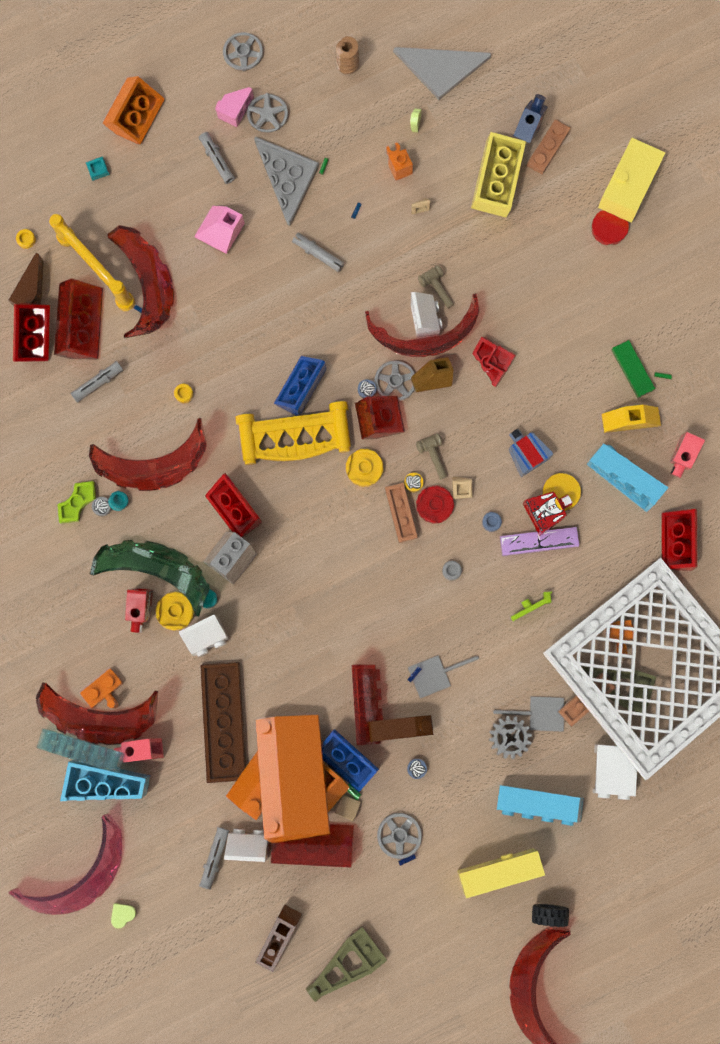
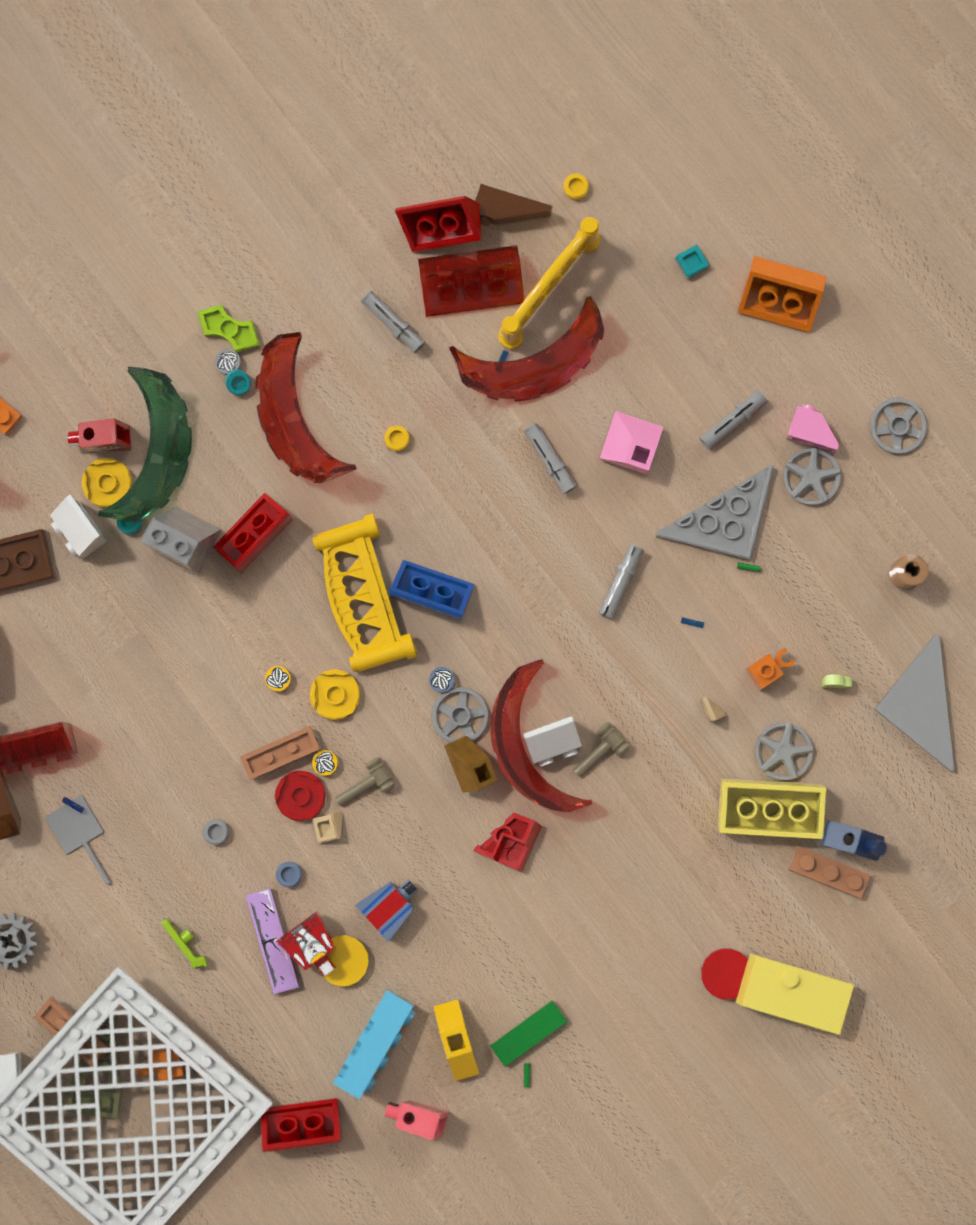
camera: 80 degrees right, 5 degrees up
(218, 287) = (547, 454): none -> light grey pin
(345, 506) = (278, 678): none -> tile
(379, 417) = (403, 703): clear red slope -> none
(458, 163) = (784, 751): none -> light grey wheel
(542, 713) = (49, 978): light grey piece -> none

